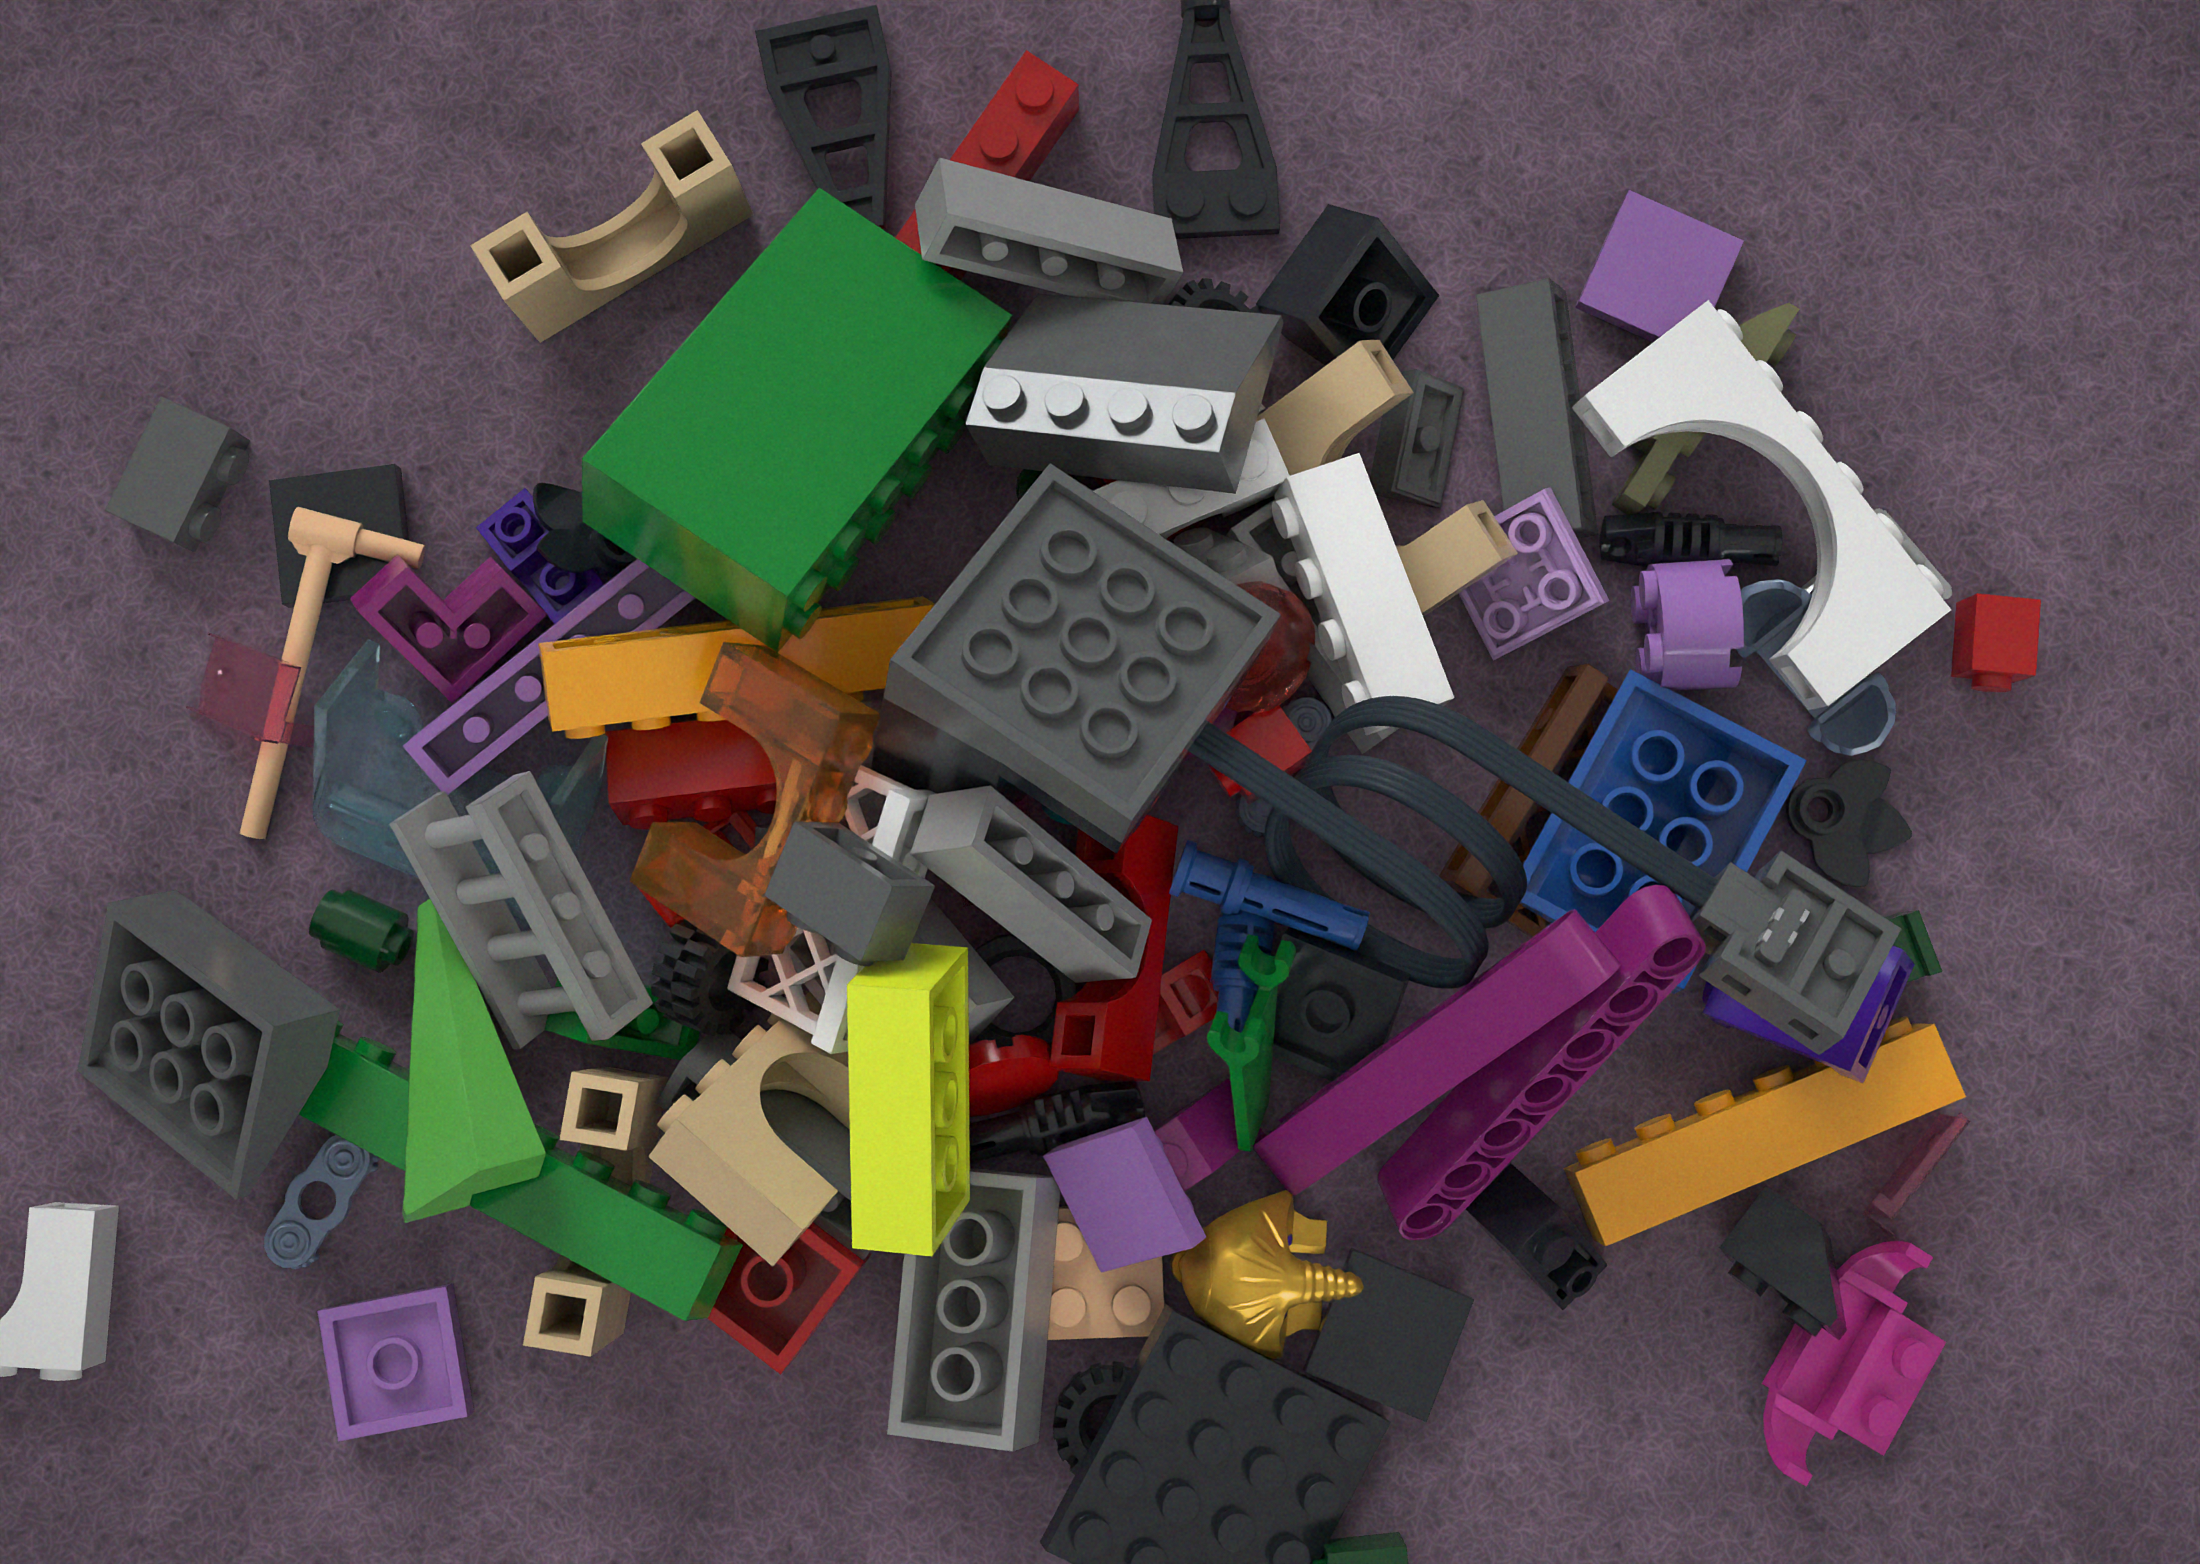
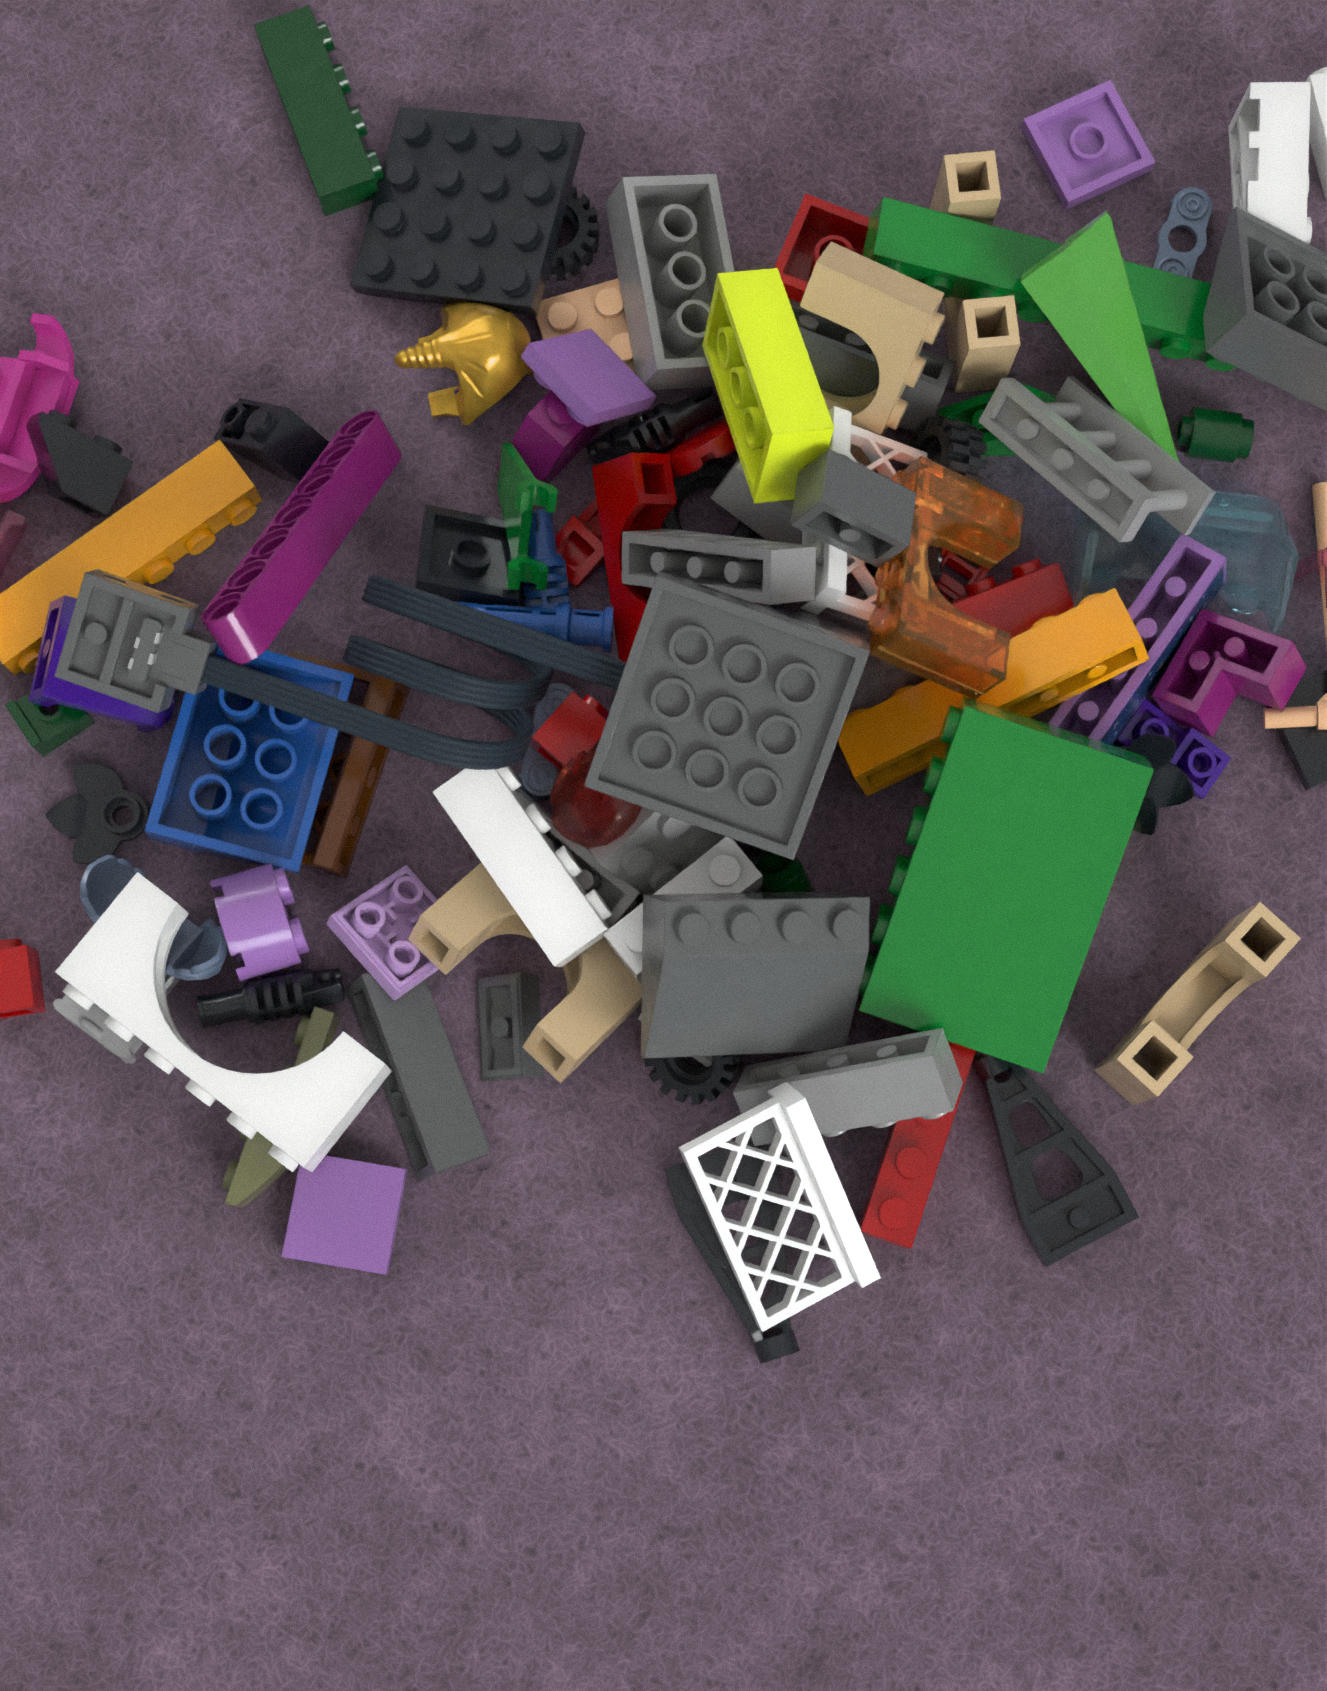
camera: 165 degrees right, 5 degrees down
(169, 1264) = (1273, 155): none -> white wedge
(1119, 152) = (824, 1197): none -> white fence
(1348, 287) = (595, 1125): black slope -> none
(1390, 1337) = (359, 344): black tile -> none
(1438, 1051) = (381, 524): magenta beam -> none

